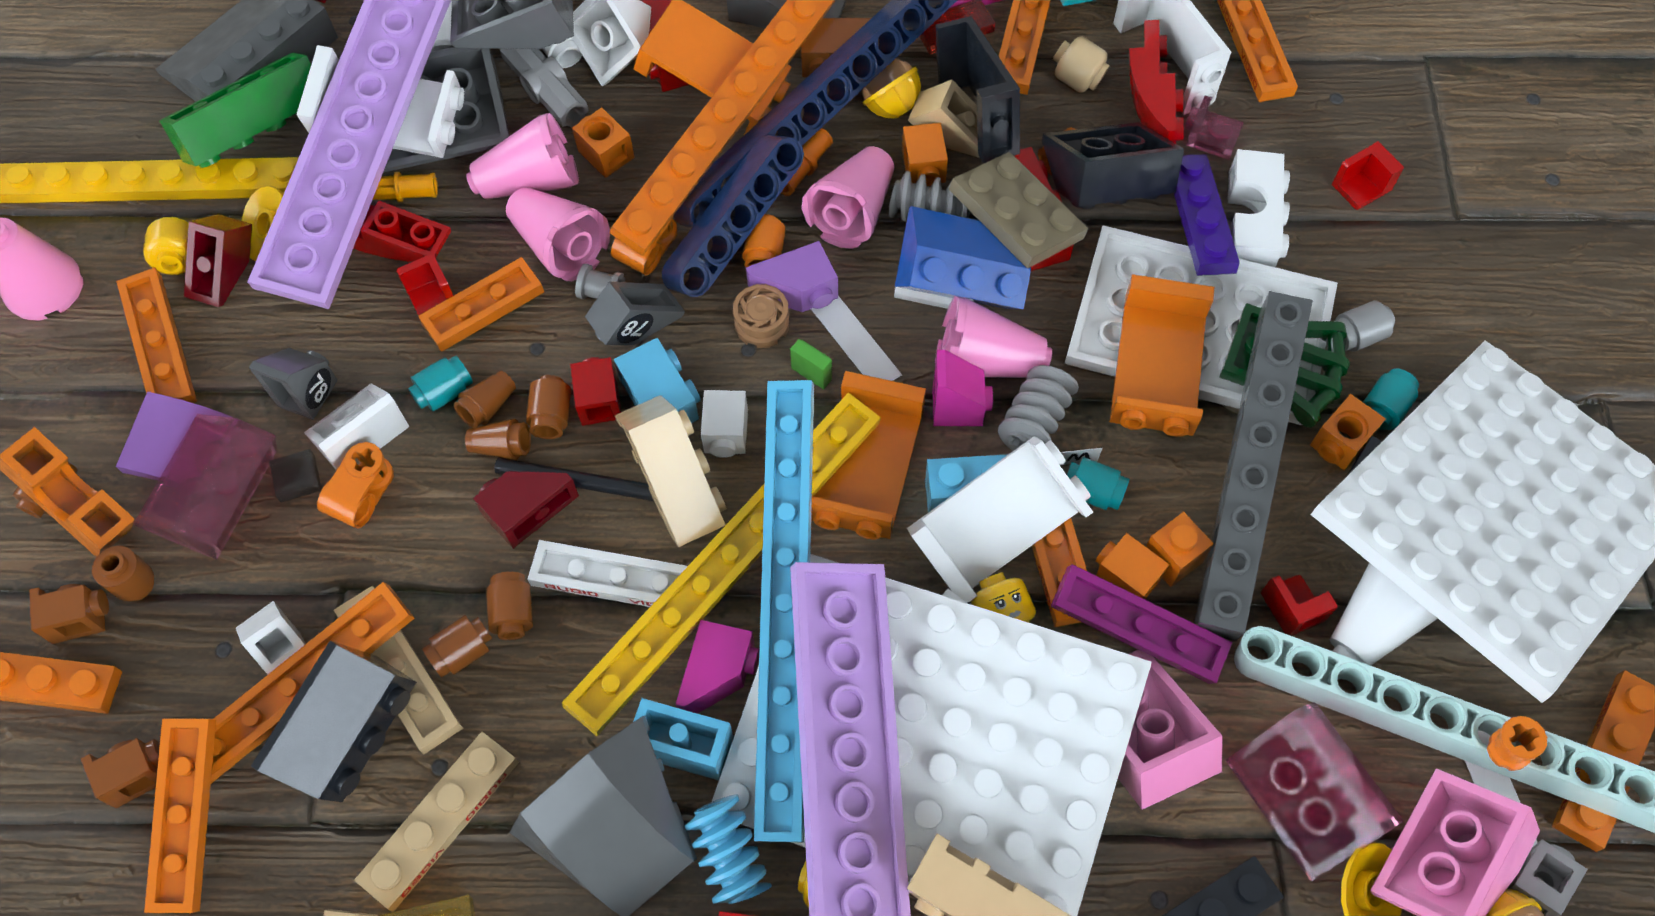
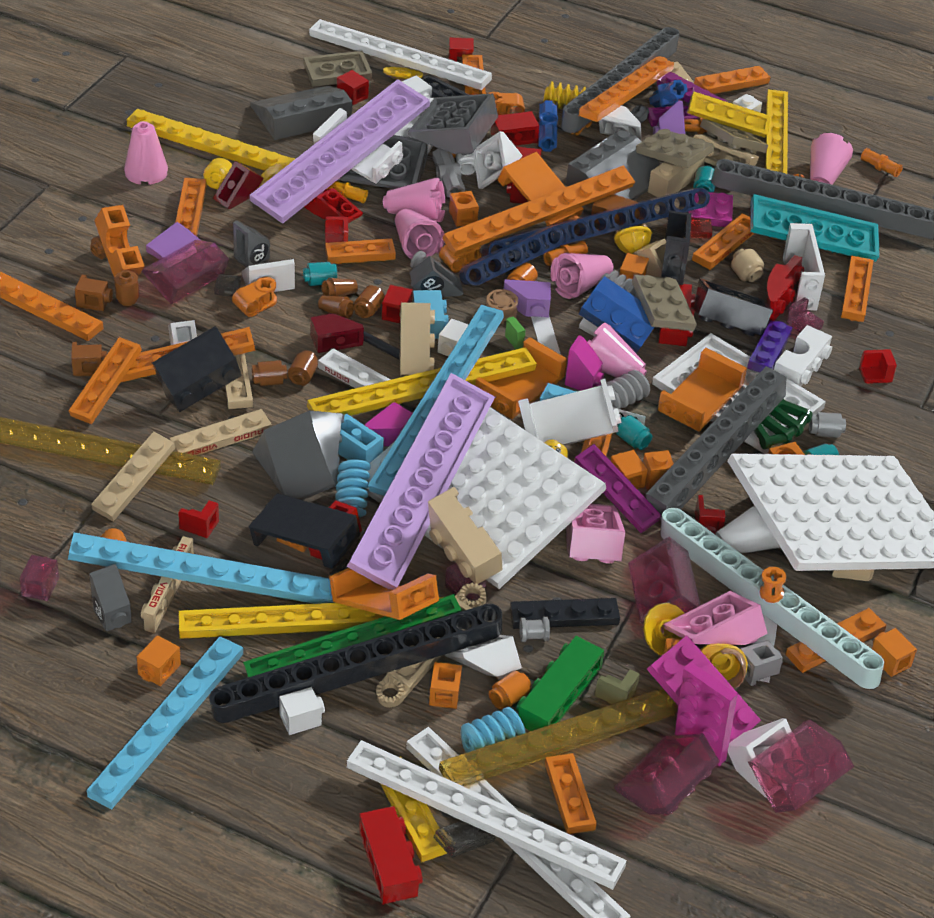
camera: 20 degrees right, 20 degrees down
(238, 111) = (281, 129): green brick -> none

